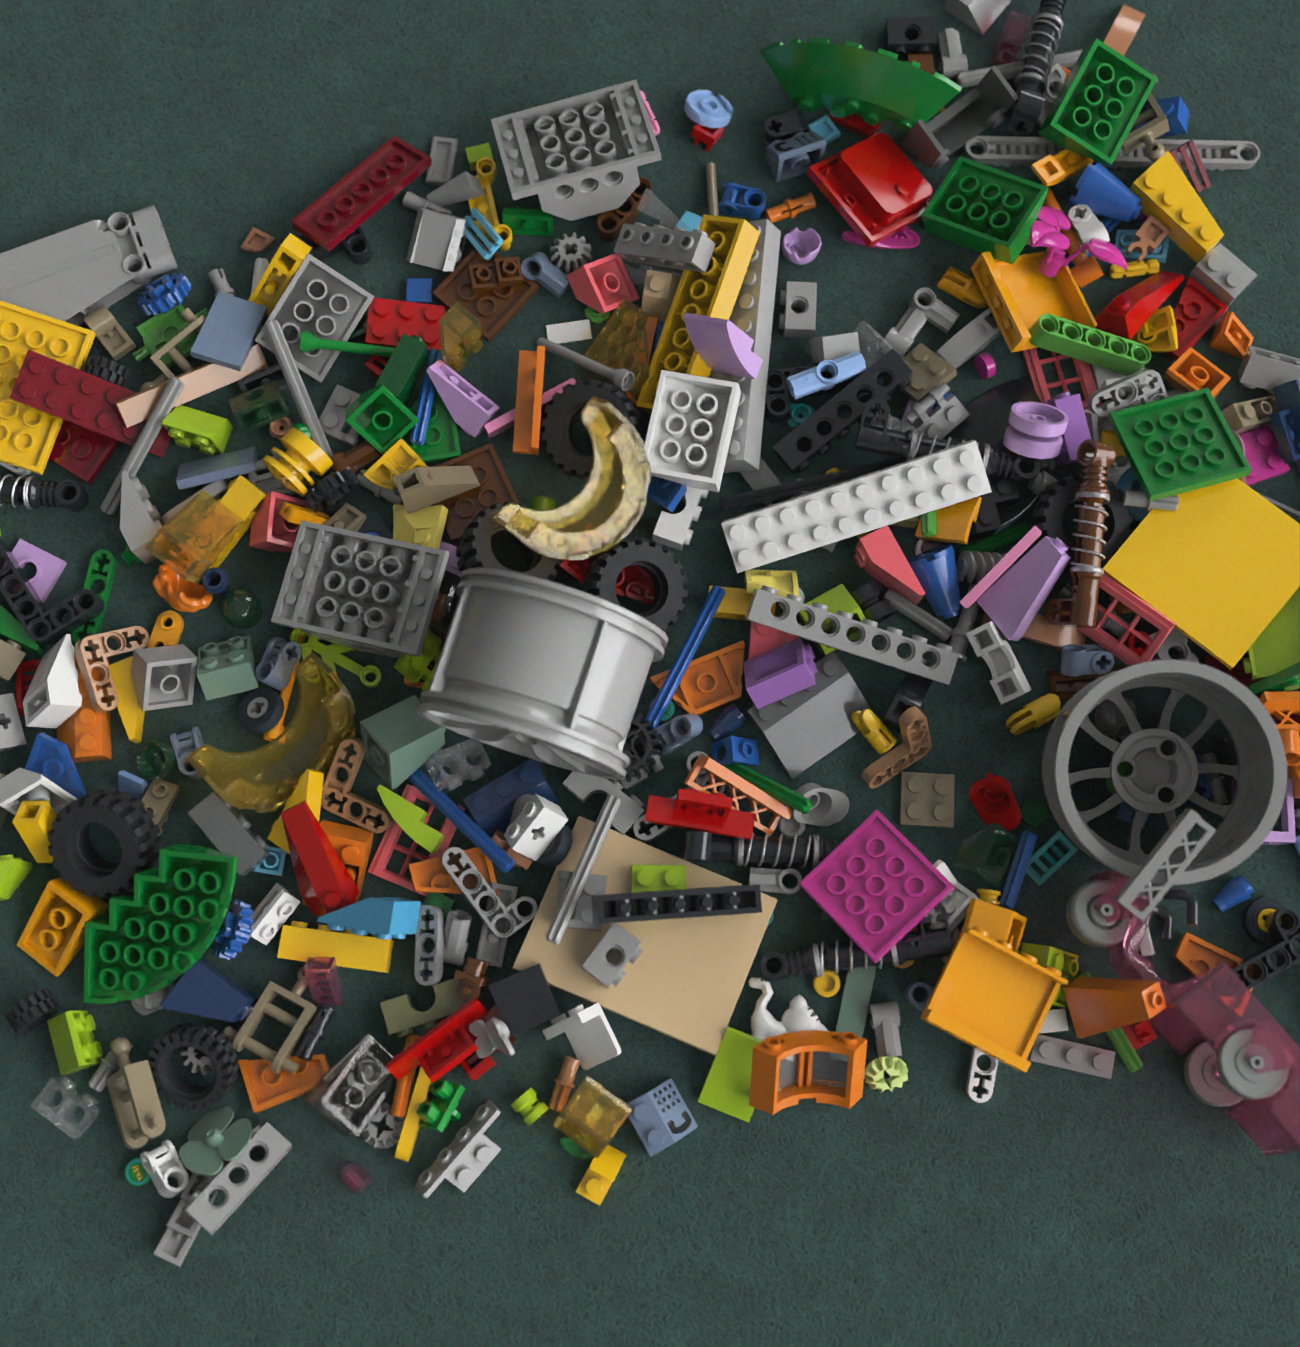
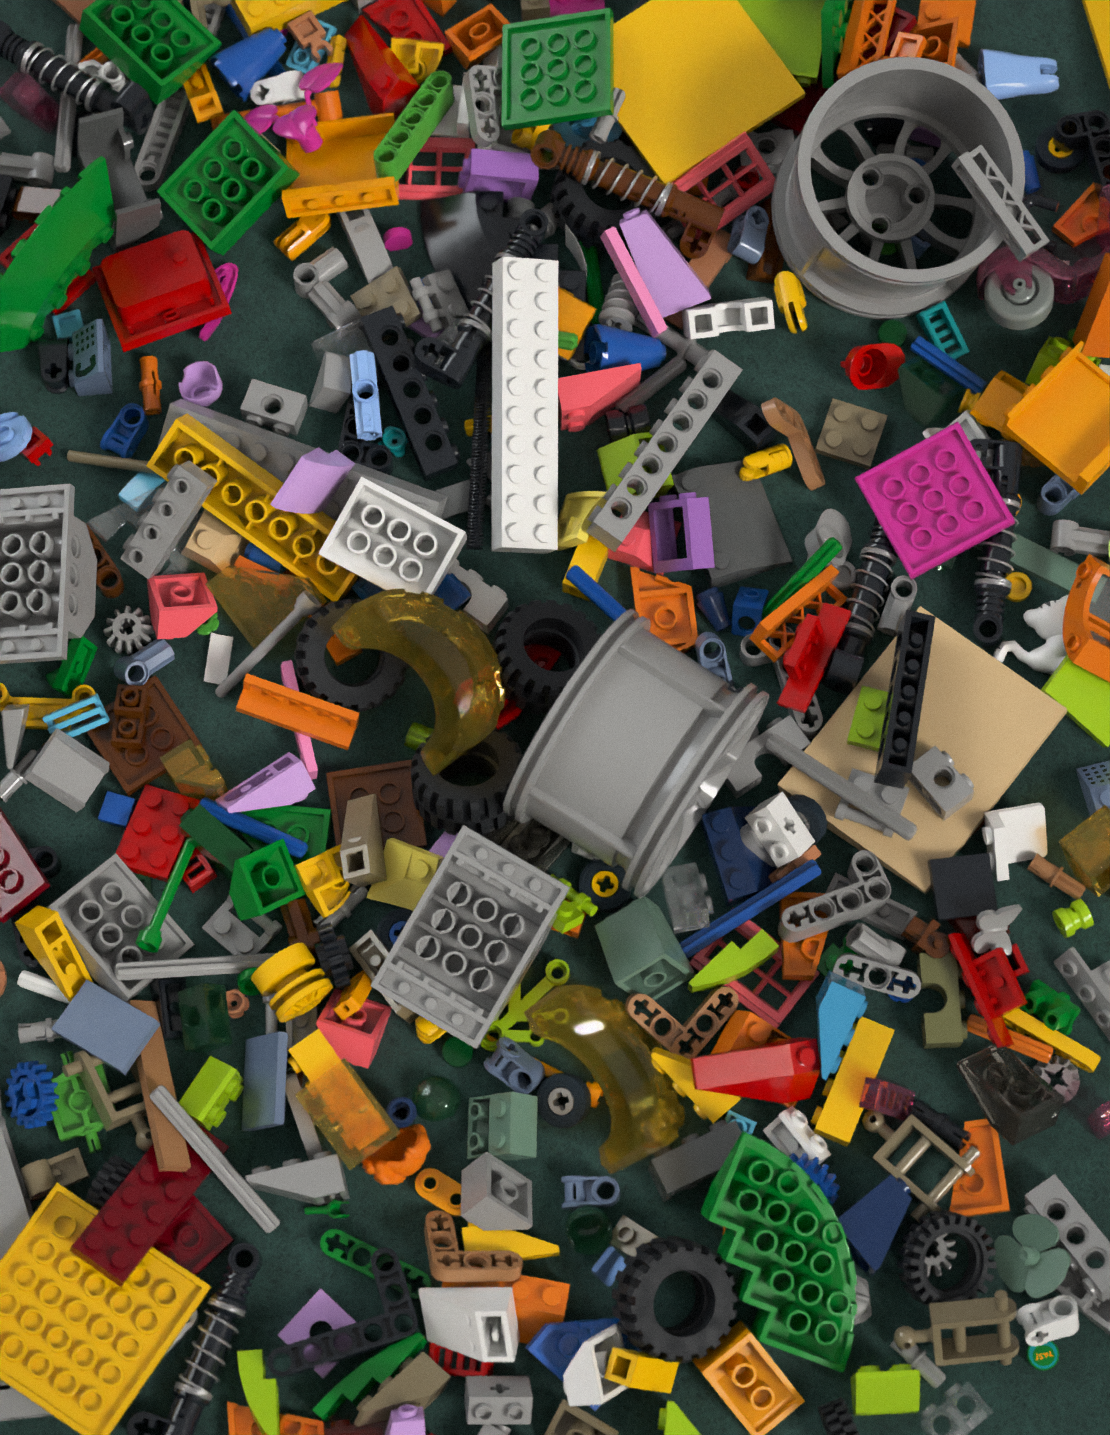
camera: 70 degrees left, 5 degrees down
(1035, 430) = (499, 201): lavender wheel -> none

